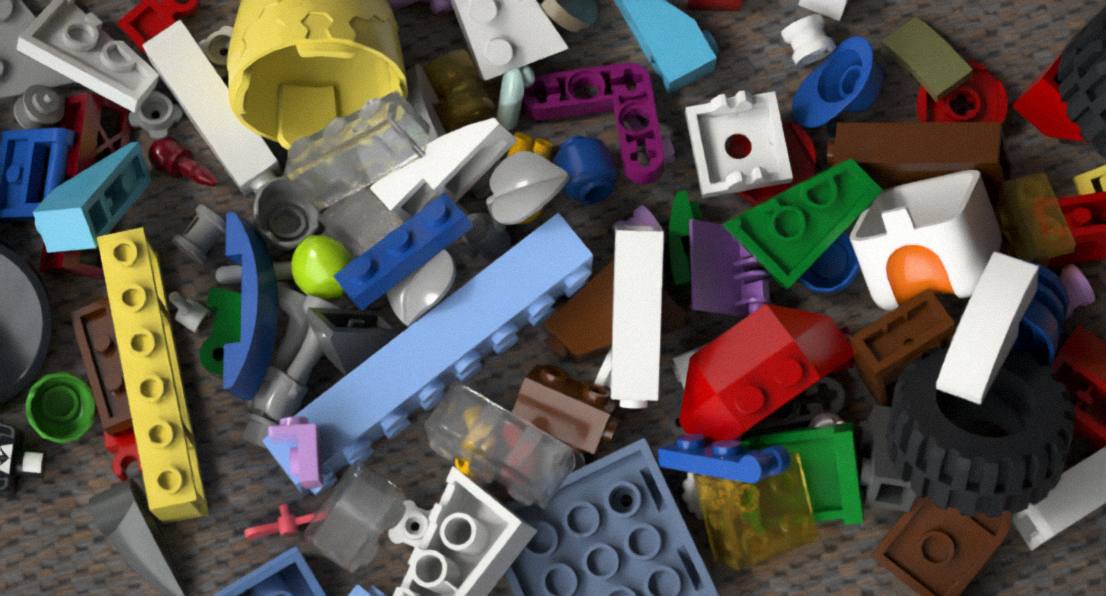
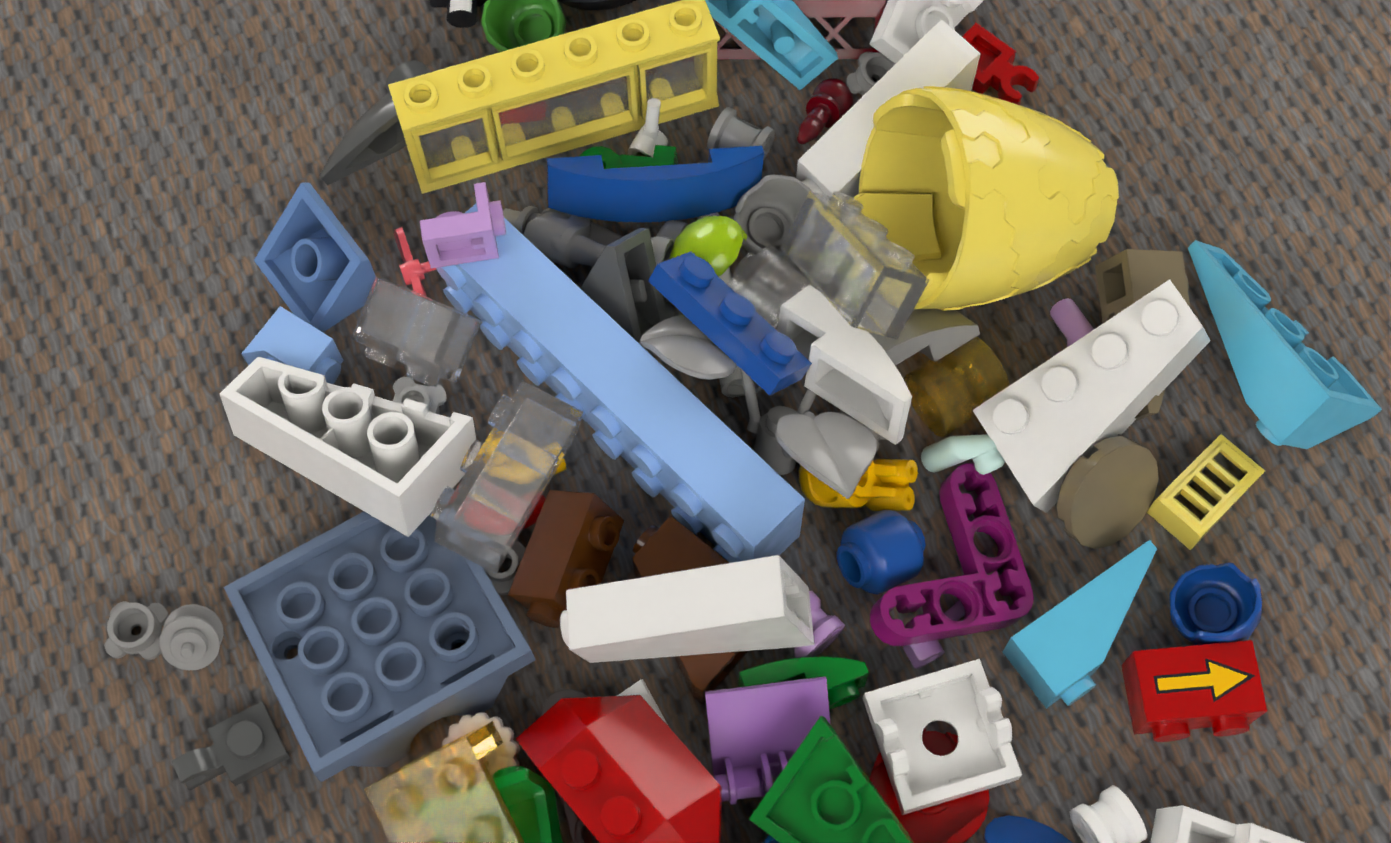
camera: 85 degrees right, 10 degrees down
(723, 459) = (498, 746): blue plate -> none

